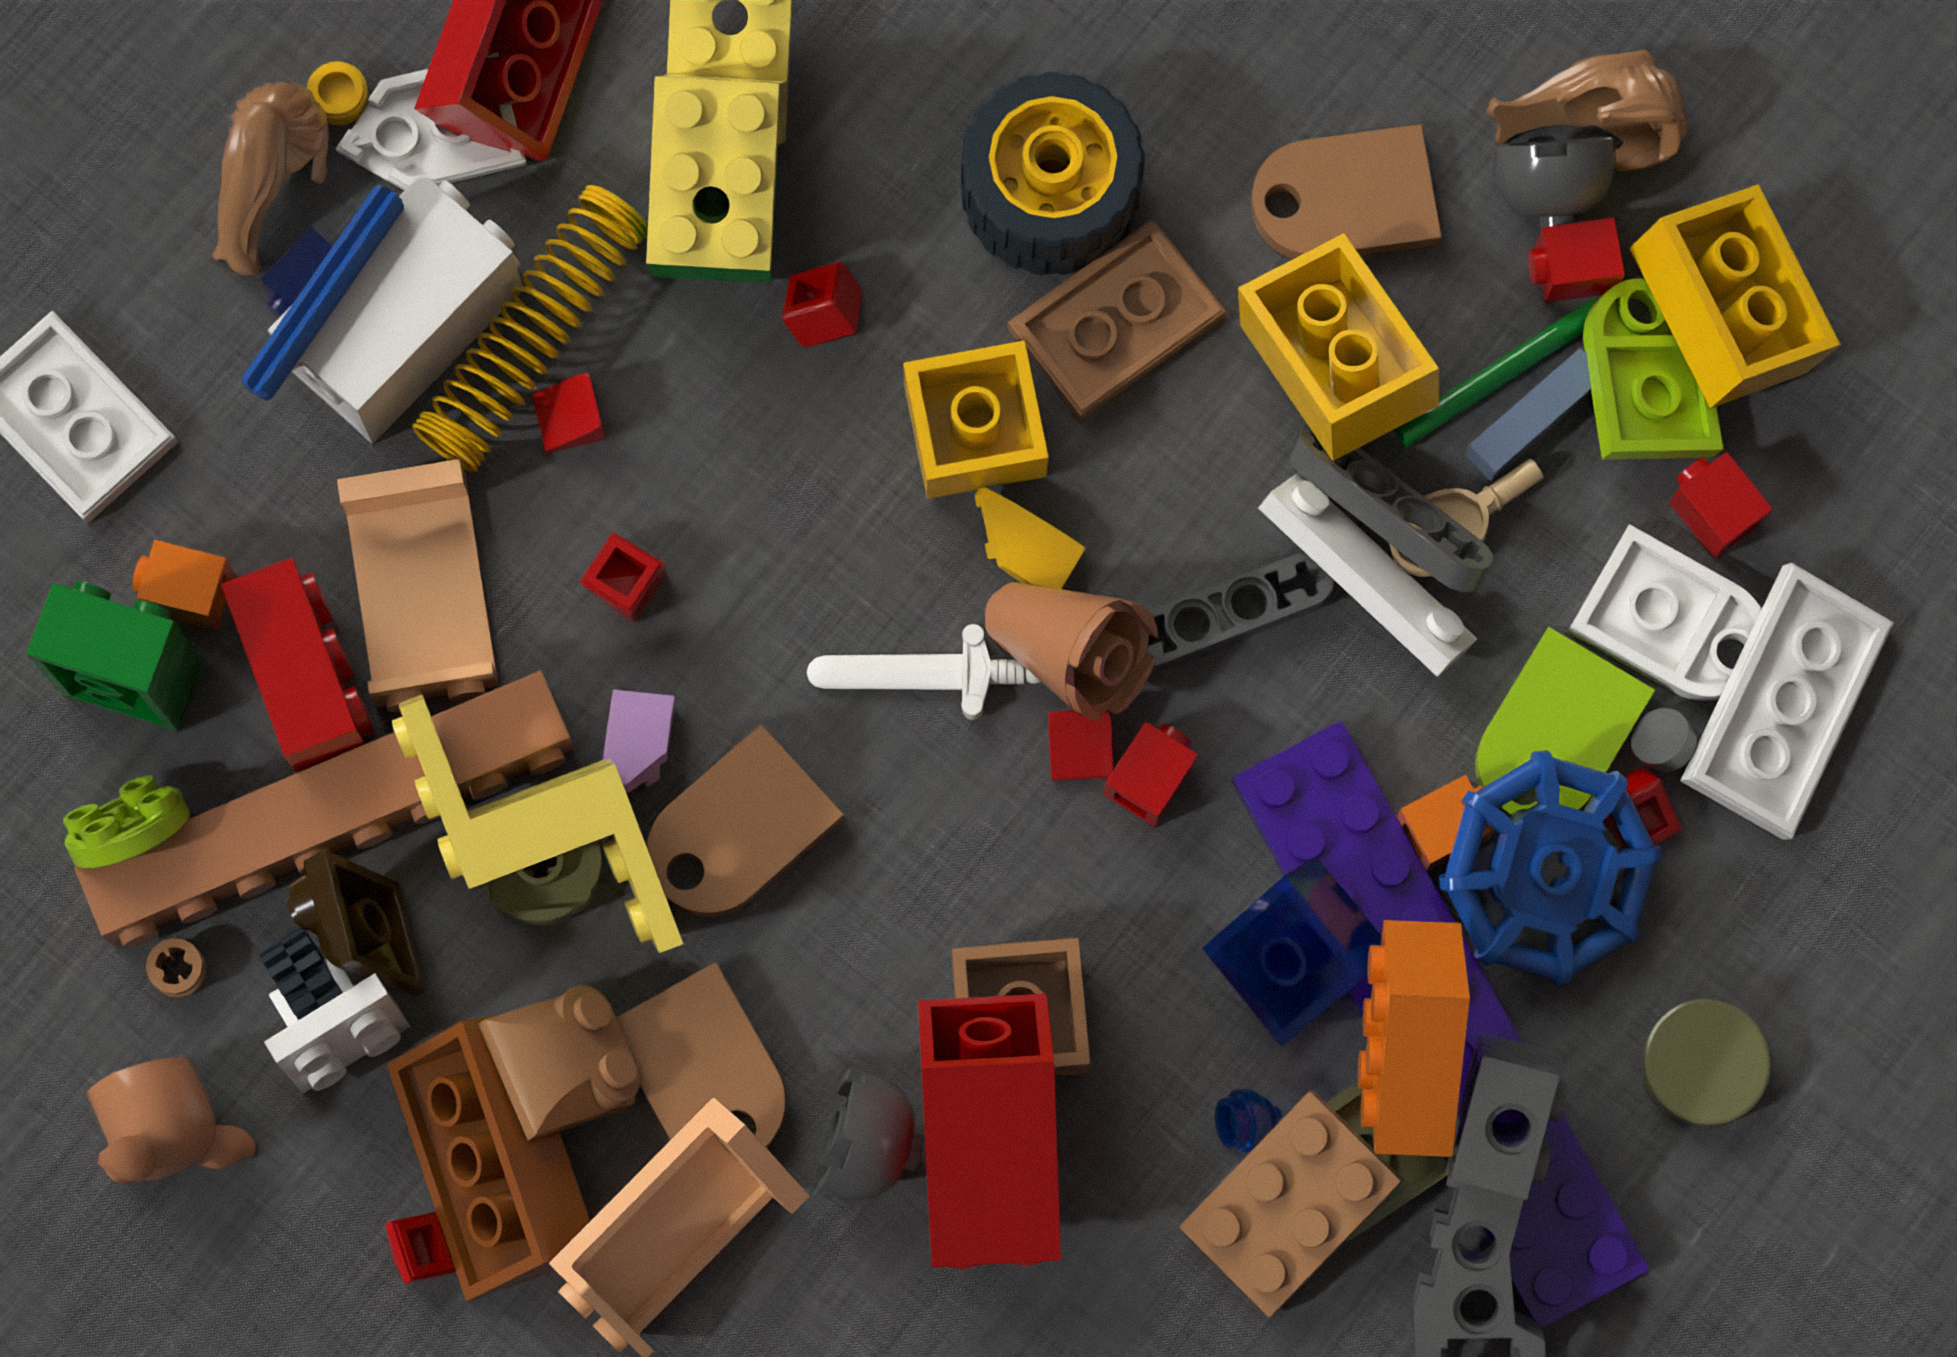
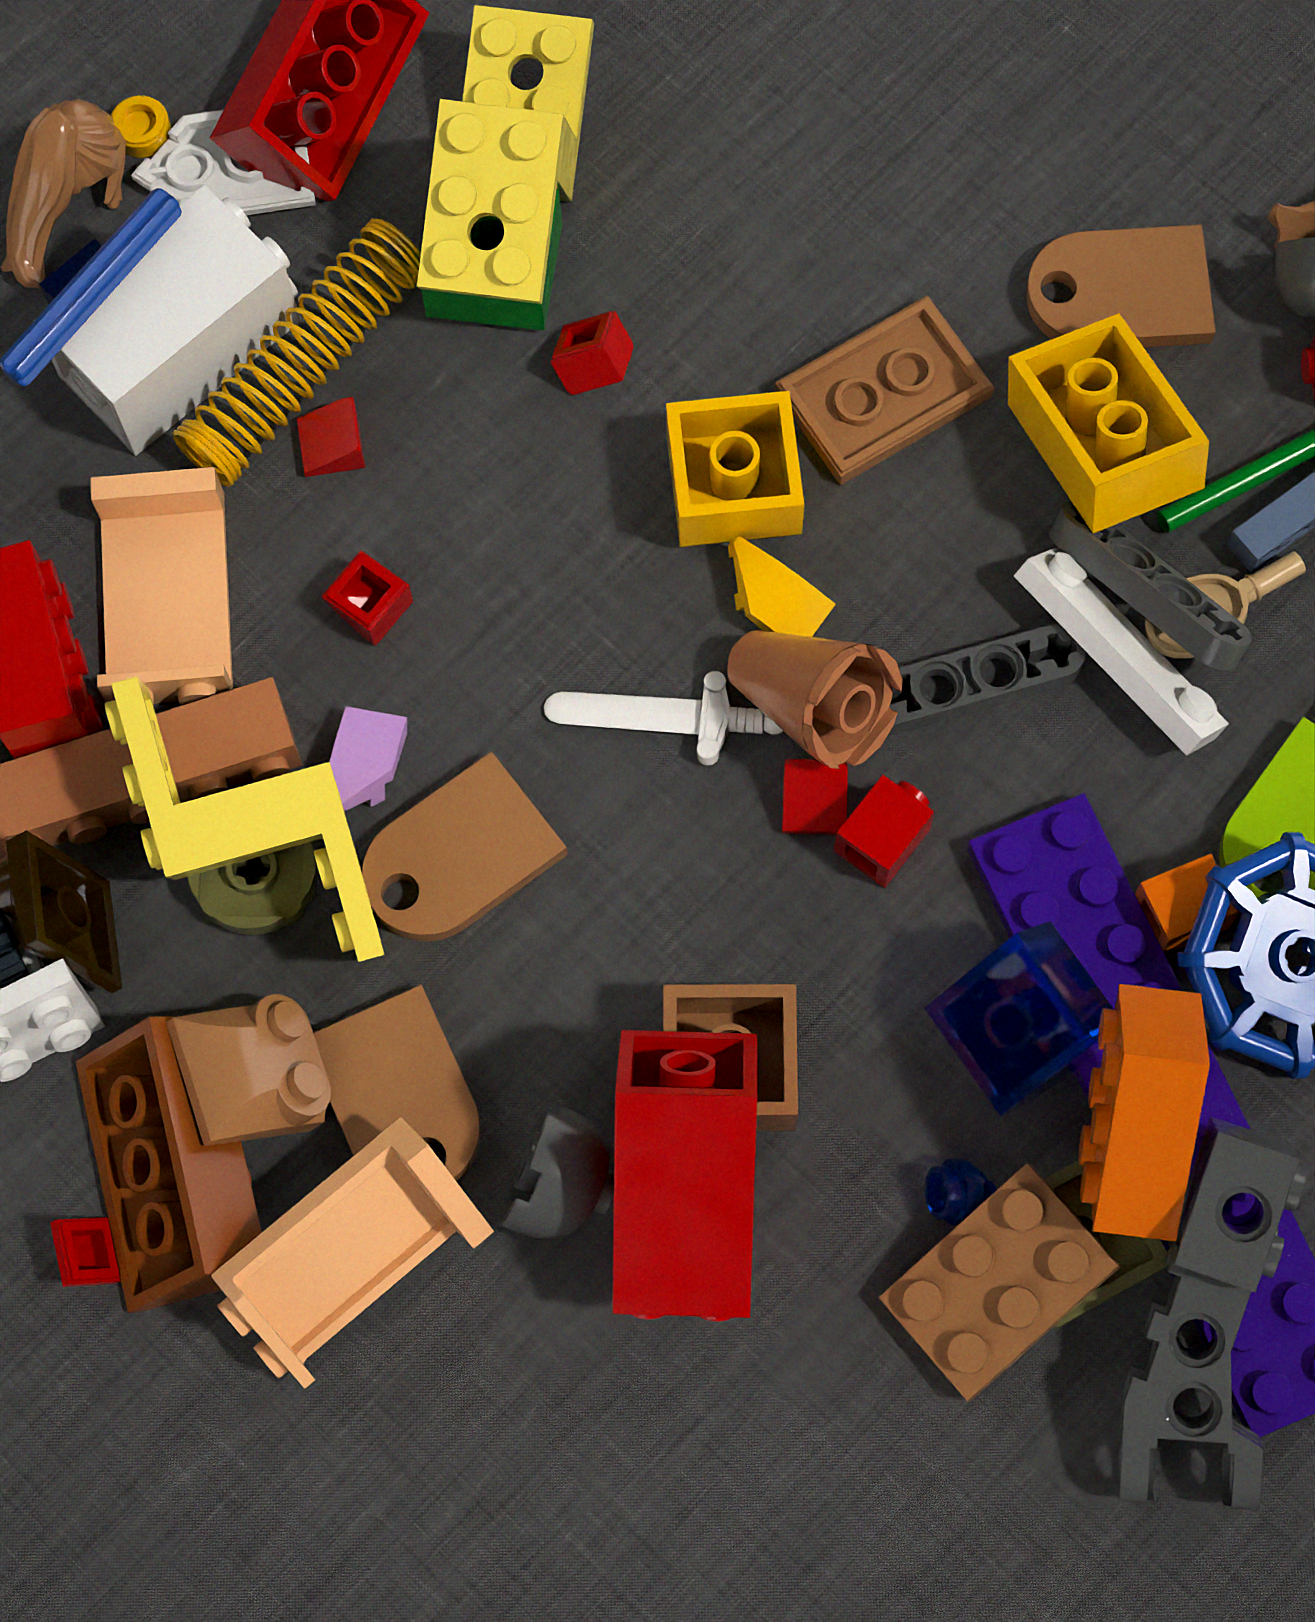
camera: 10 degrees right, 5 degrees down
(1051, 172) = (829, 239): wheel -> none

